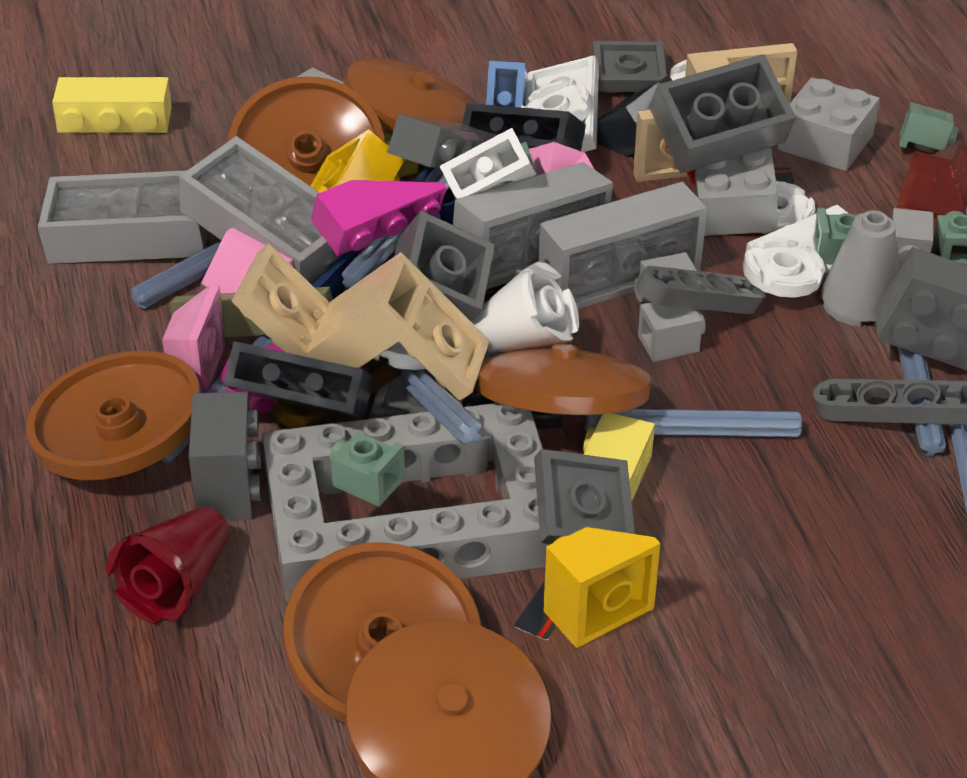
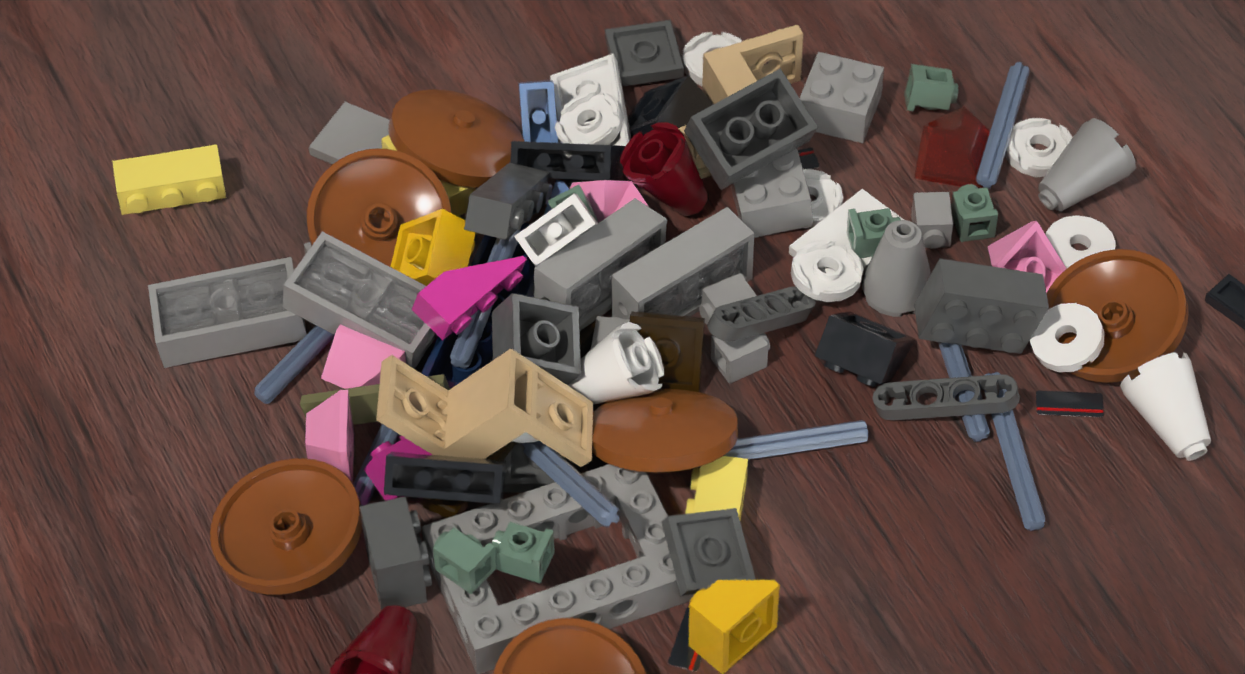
camera: 10 degrees left, 10 degrees up
(294, 463) = (464, 559): none -> sand green brick
(601, 306) = (679, 344): none -> dark brown tile
(624, 145) = (665, 168): none -> dark red cone
(810, 342) = (863, 348): none -> black slope

